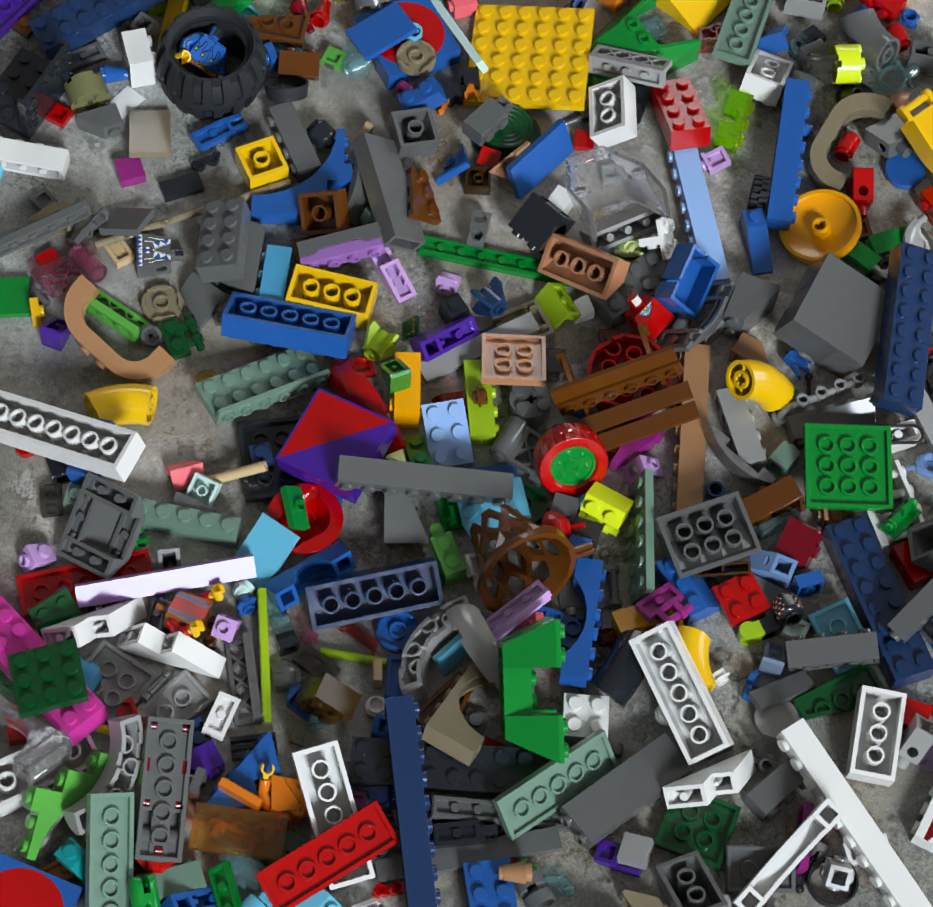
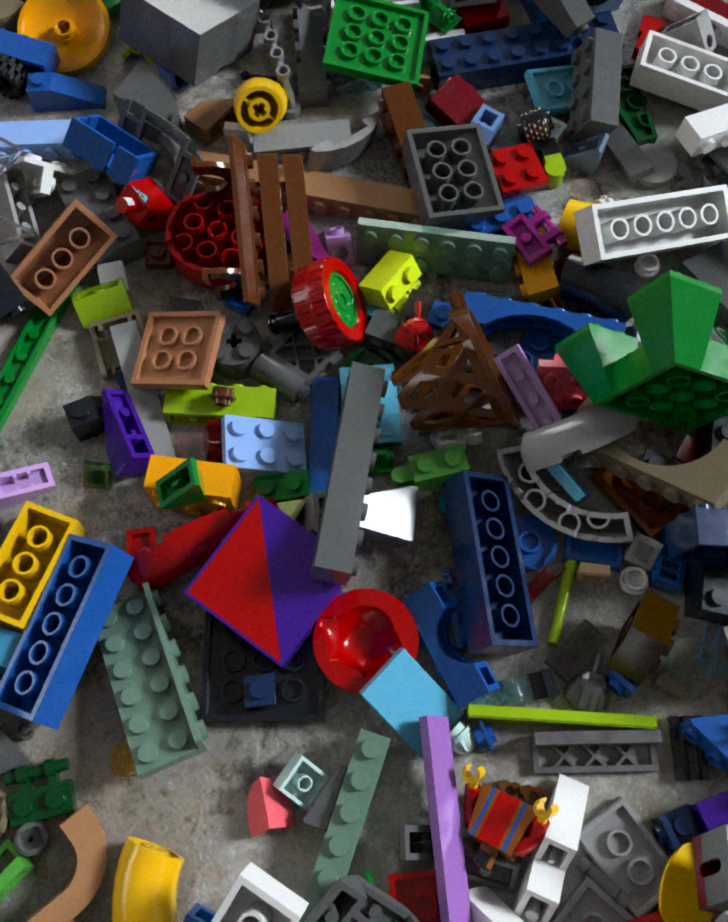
camera: 75 degrees left, 5 degrees up
(221, 716) = (654, 788): white plate -> none
(225, 627) = (517, 766): lavender bracket -> none
(240, 472) = (283, 726): tan piece -> none
(295, 508) = (354, 650): green plate -> none
(308, 635) = (534, 657): clear pink plate -> none
(378, 343) = (114, 514): lime brick -> none
(447, 283) = (44, 425): lavender bracket -> none
(490, 300) = (81, 370): dark blue brick -> none
(629, 249) = (45, 214): yellowish green piece -> none
(714, 490) = (384, 171): dark blue cone -> none
(749, 684) = (615, 184): blue piece -> none
(783, 459) = (346, 106): sand green brick -> none
(793, 358) = (224, 82): blue piece -> none
(807, 583) = (501, 102): blue piece -> none

